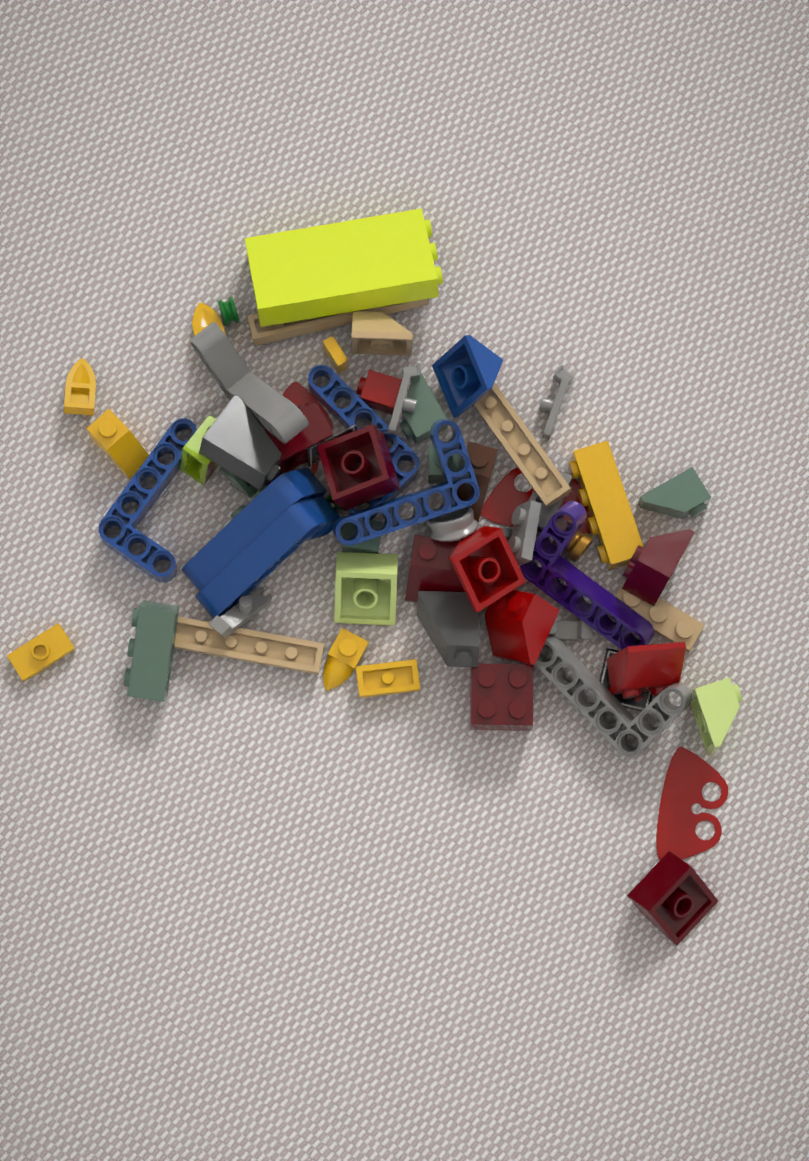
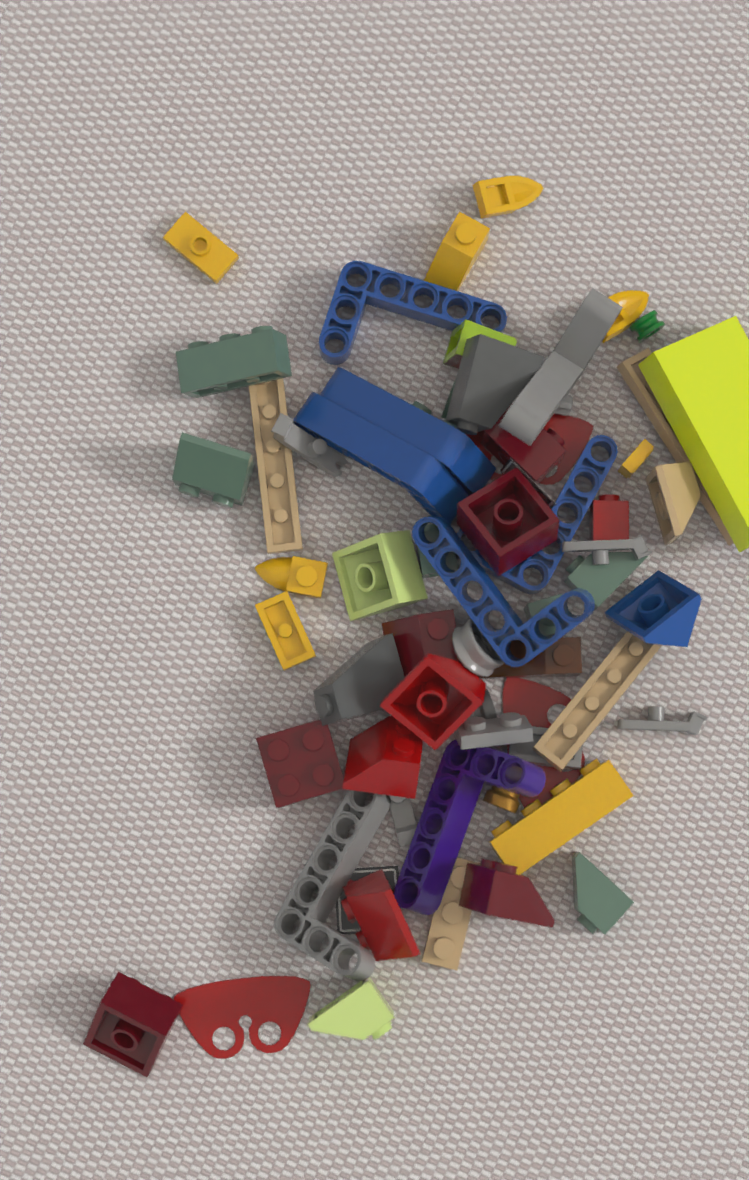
camera: 75 degrees right, 5 degrees up
(237, 695) = (212, 470): none -> sand green slope

